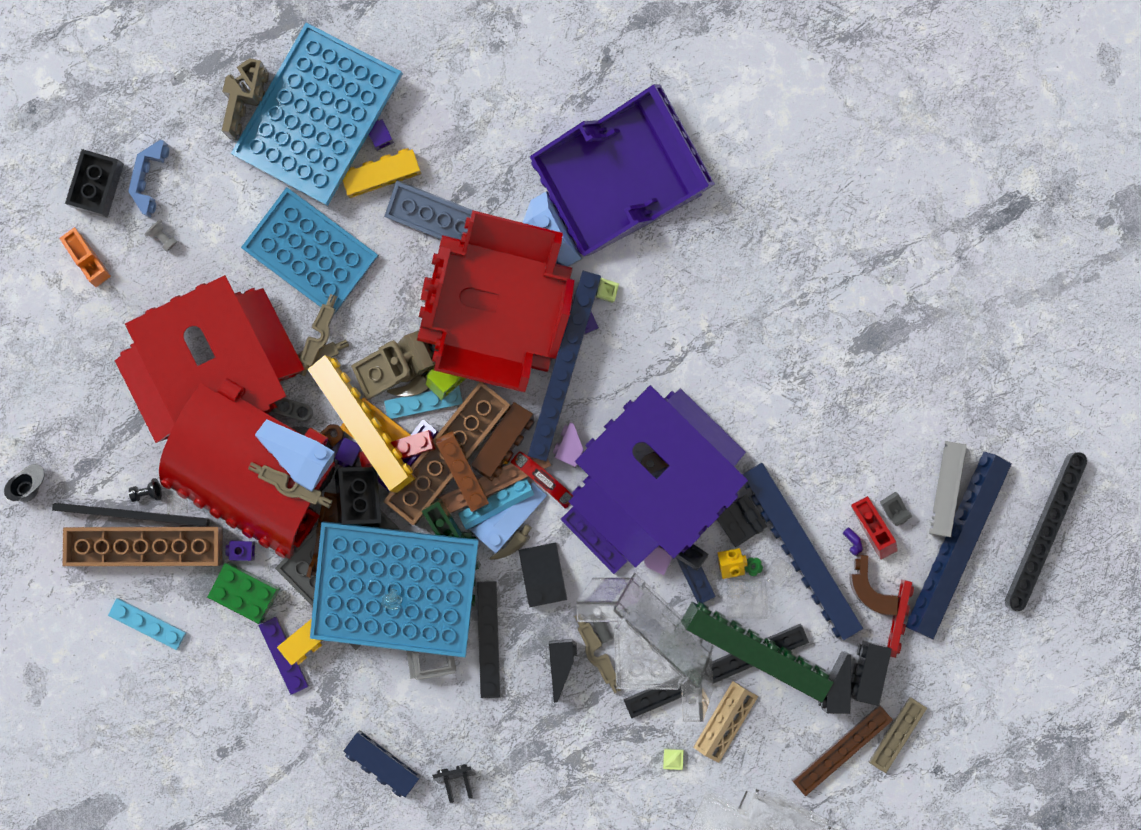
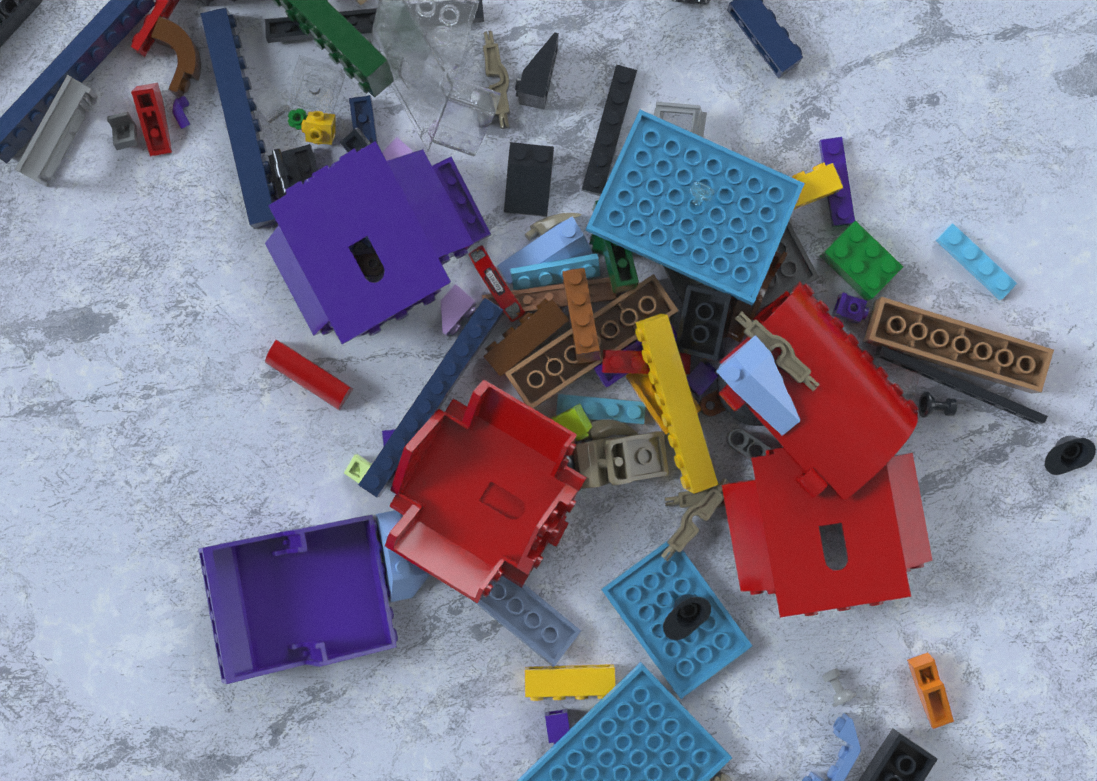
camera: 165 degrees left, 0 degrees up
(301, 253) = (687, 615): none -> black piece
(674, 355) = (308, 374): none -> red brick

